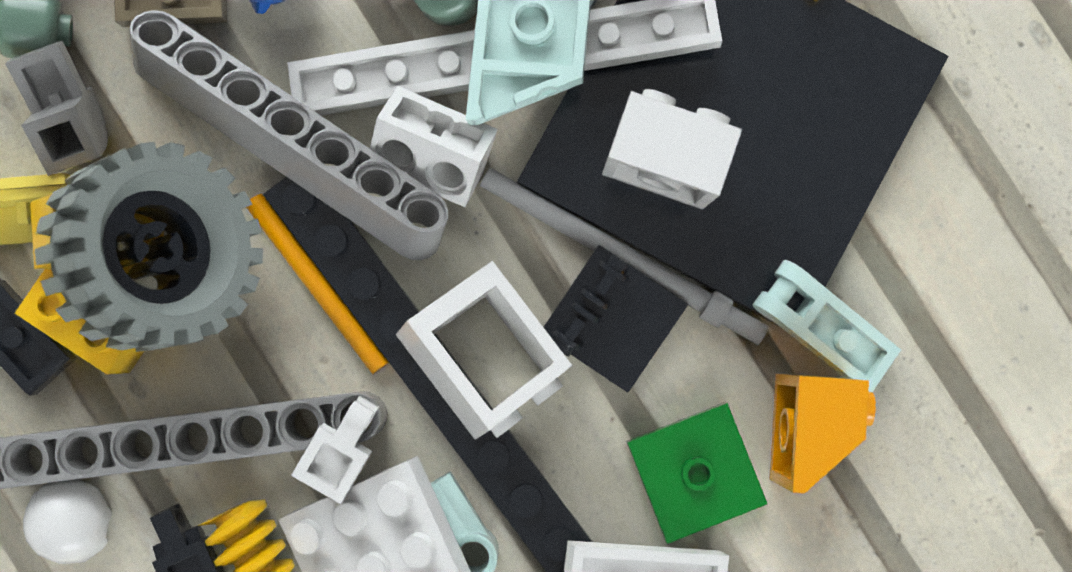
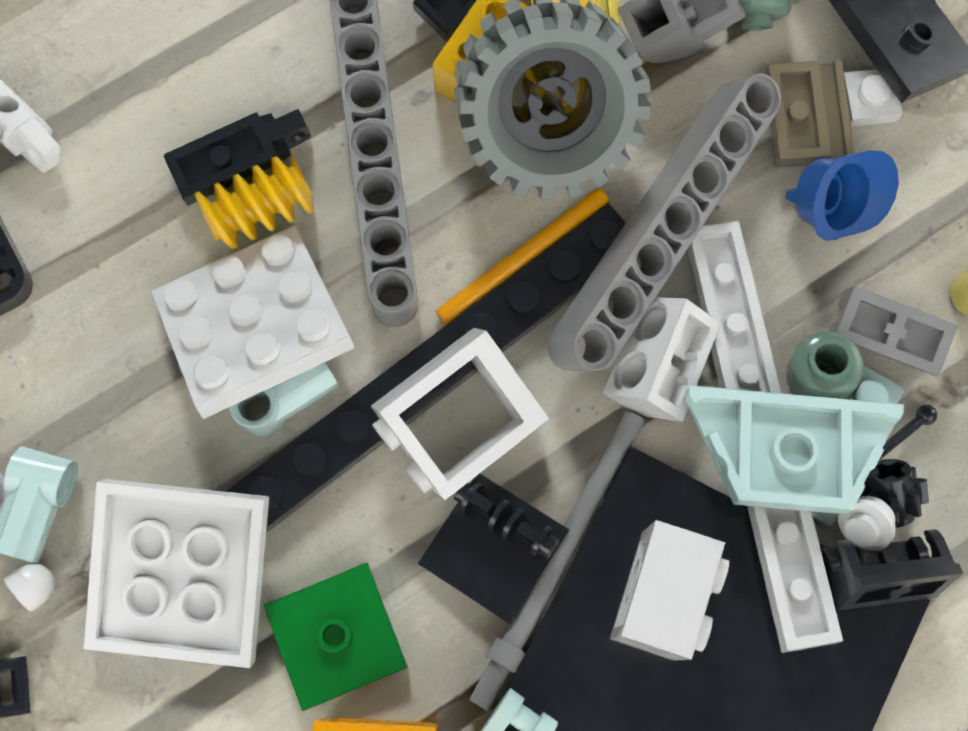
camera: 90 degrees right, 10 degrees down
(67, 521) = (296, 39): white hair -> none
(335, 455) = (355, 268): white plate -> none

